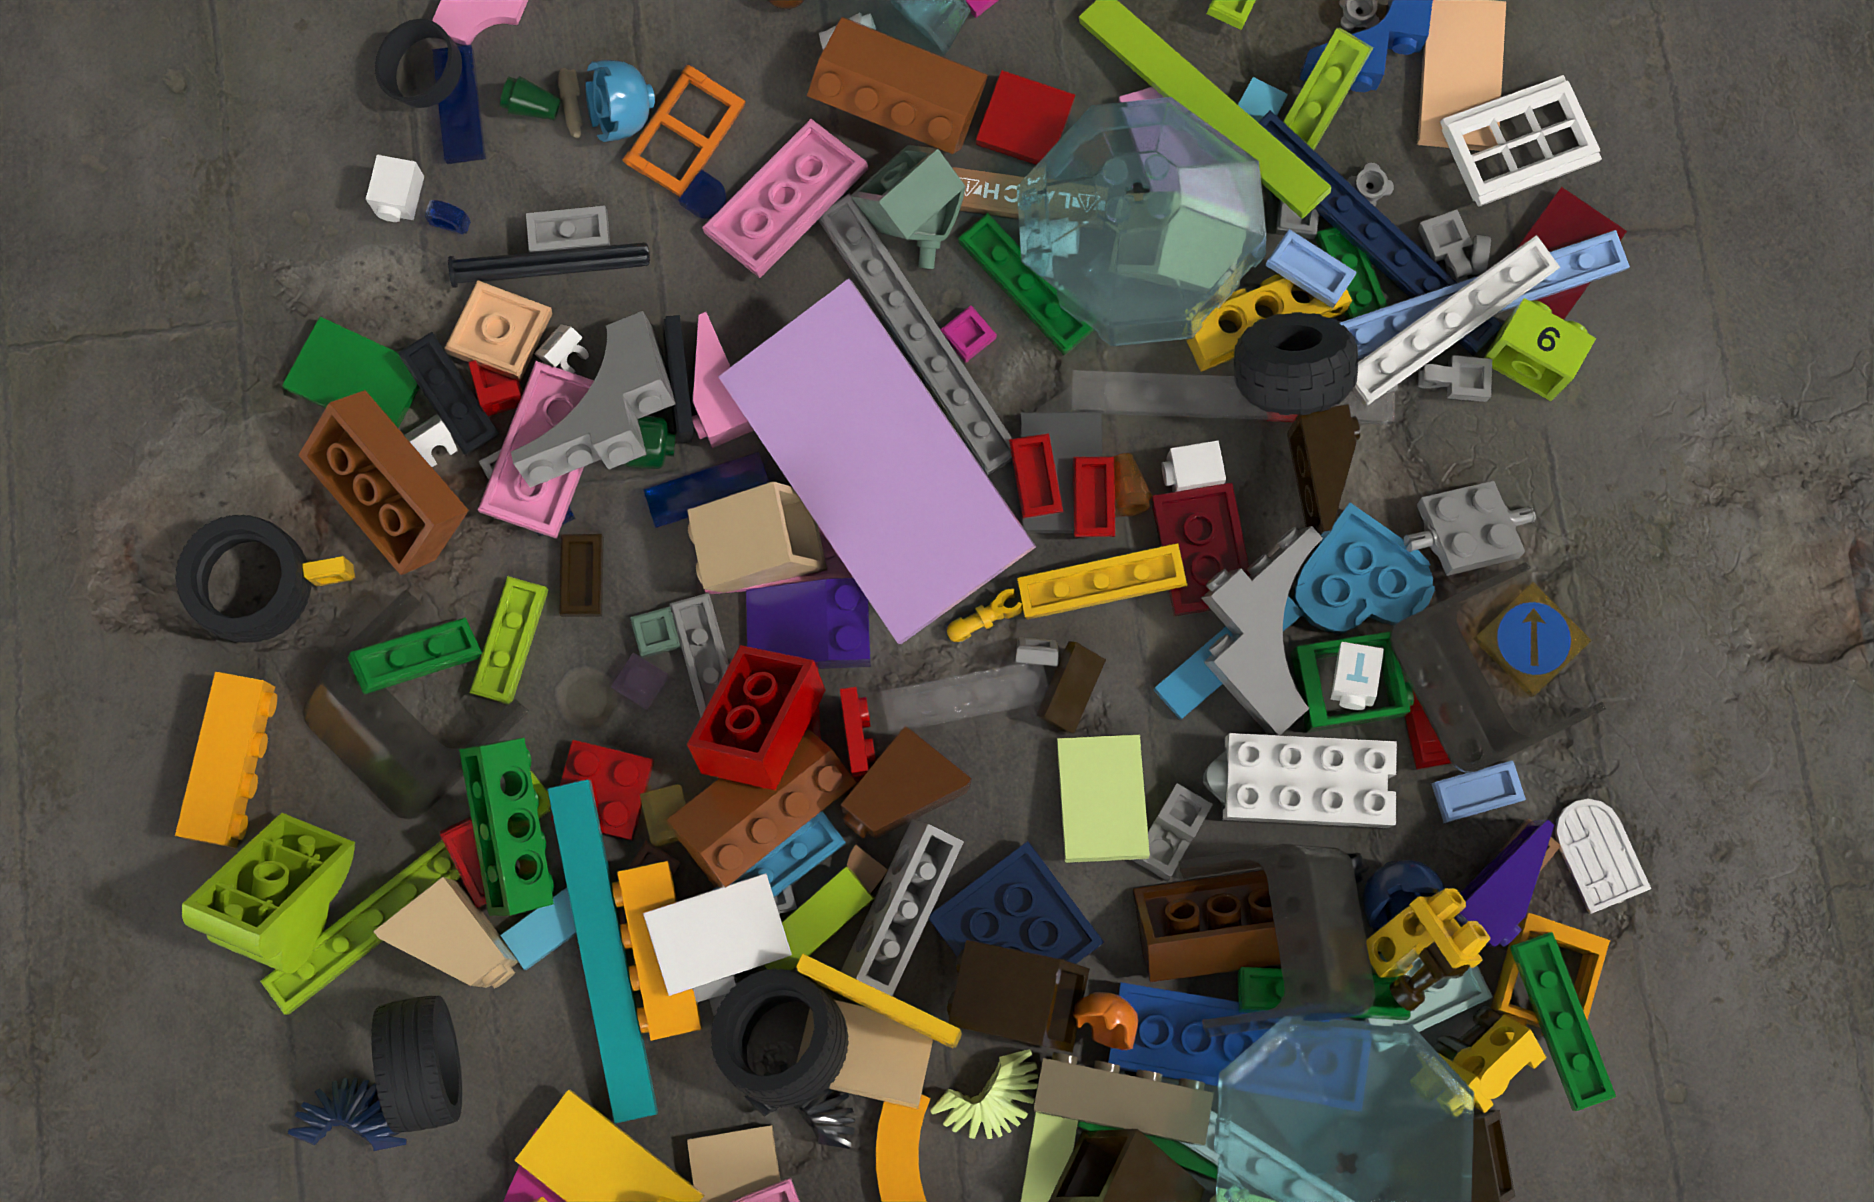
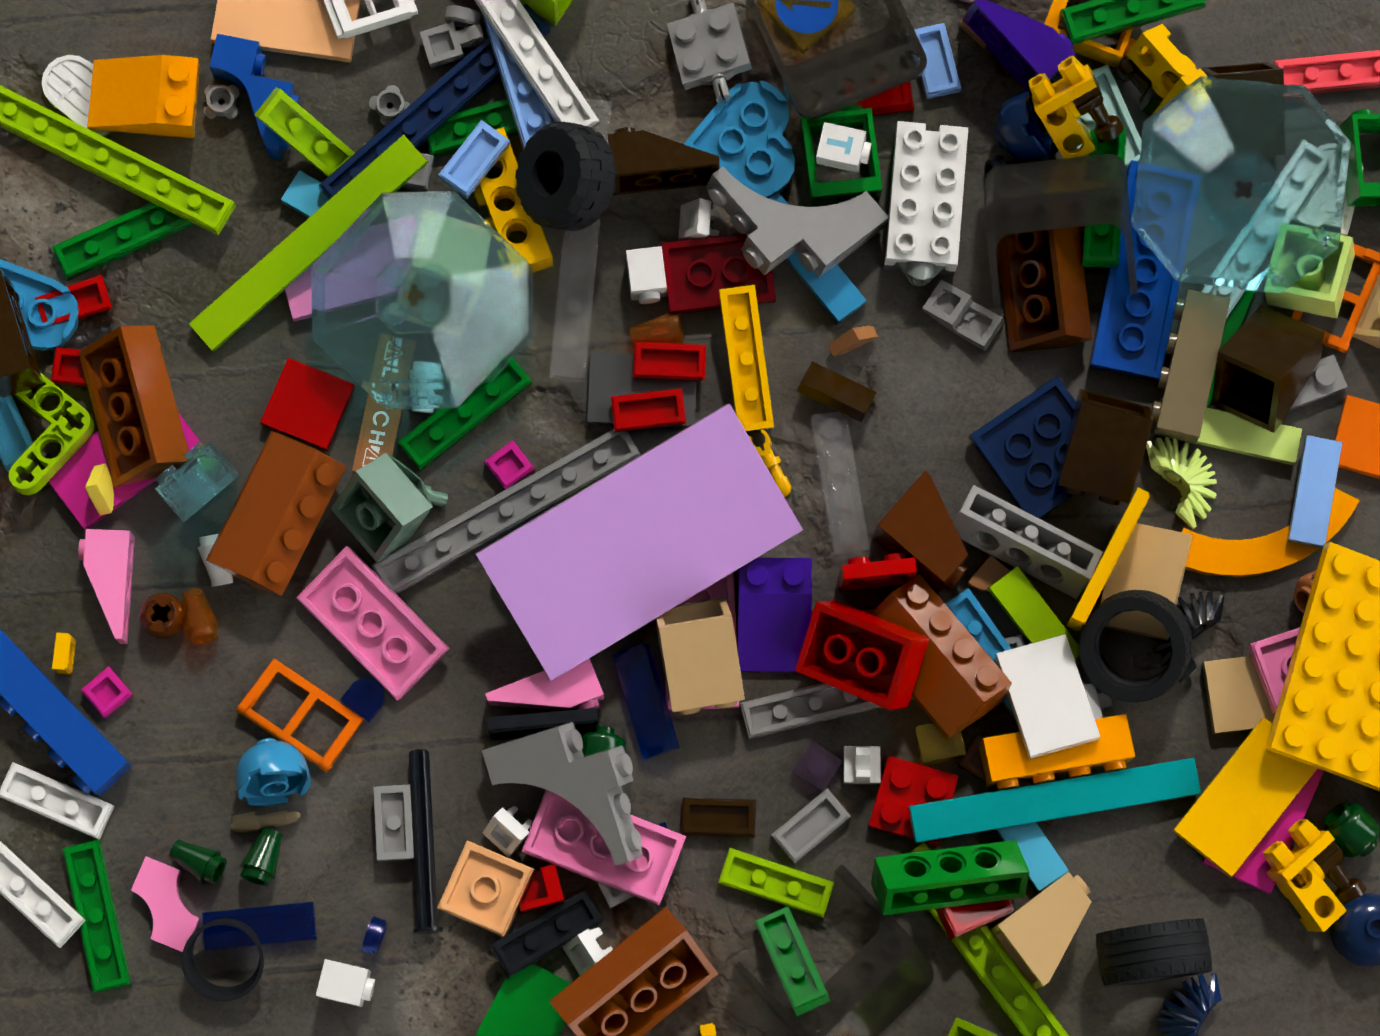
camera: 90 degrees left, 0 degrees up
(523, 38) = (200, 862): none -> dark green cone
(573, 676) = (810, 826): none -> light grey tile
(642, 731) = (861, 765): none -> white tile
(655, 632) = (773, 751): sand green tile -> none
(785, 21) = (199, 619): none -> clear orange cone
(1037, 651) = (804, 418): light grey tile -> none
(1102, 798) = (934, 370): yellowish green tile -> none
(1110, 1018) = (1125, 372): orange hair -> none
(1134, 704) = (852, 340): none -> medium nougat tile
(1262, 520) = (696, 218): none -> white tile
(1464, 377) = (573, 40): light grey plate -> none

